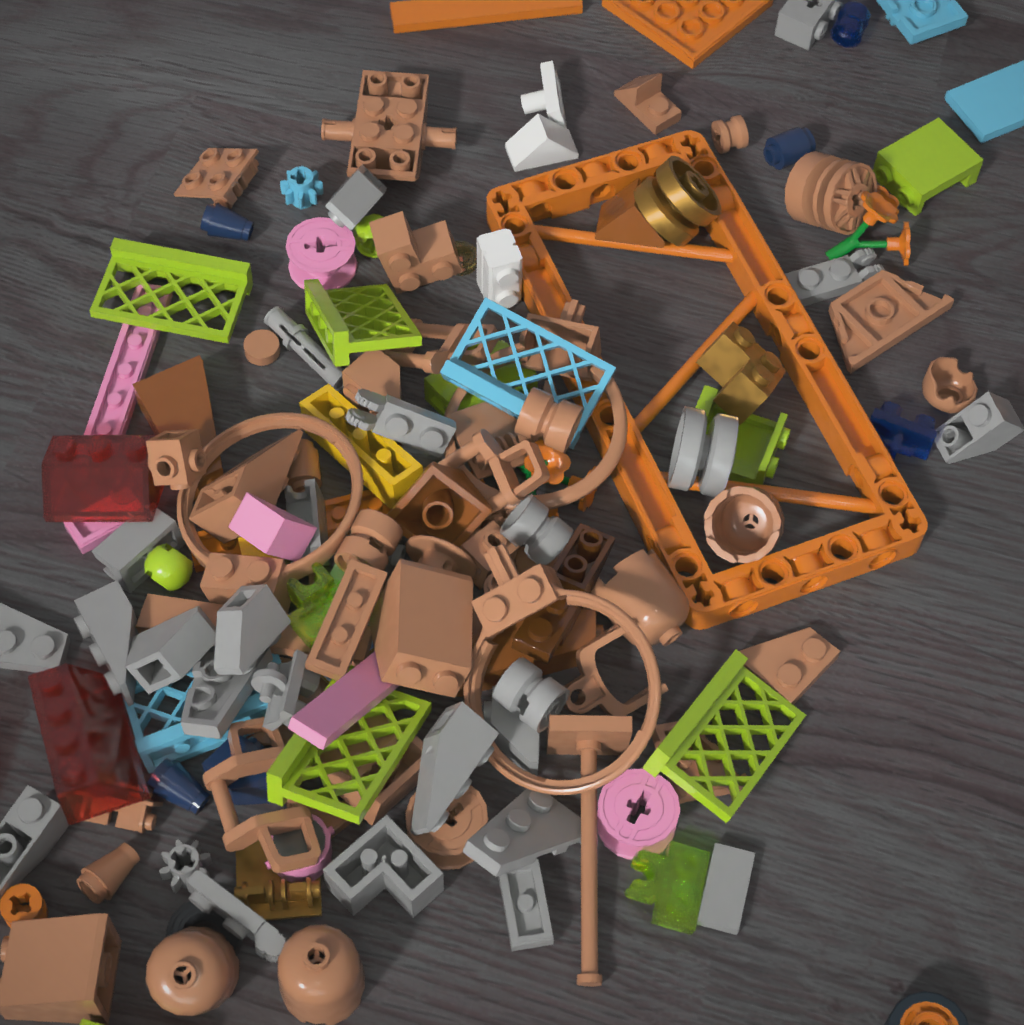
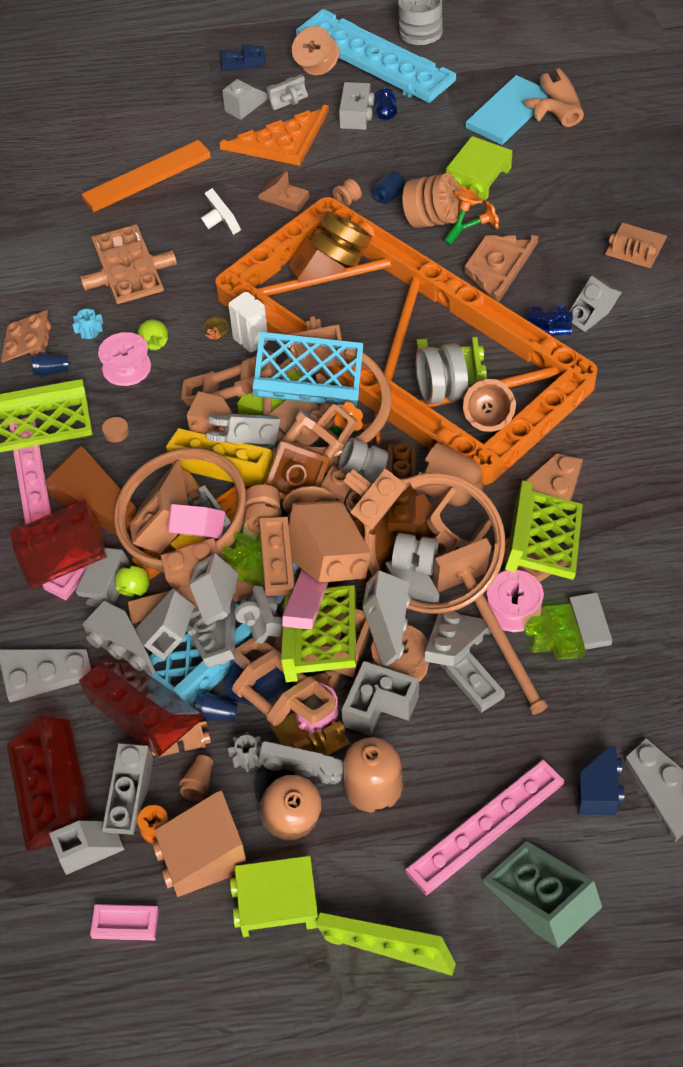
camera: 20 degrees left, 5 degrees down
(176, 458) = (107, 507): nougat brick -> none
(296, 338) = (120, 409): light grey pin -> none
(355, 198) = (131, 313): light grey slope -> none
(358, 320) = (173, 385): lime fence -> none
(416, 255) = (188, 334): nougat brick -> none
(540, 144) = (229, 243): white slope -> none
(548, 419) = (340, 388): nougat wheel -> none
(742, 370) = (436, 321): pearl gold brick -> none
(833, 276) = (458, 250): light grey hinge -> none
(948, 386) = (562, 287): nougat hair -> none

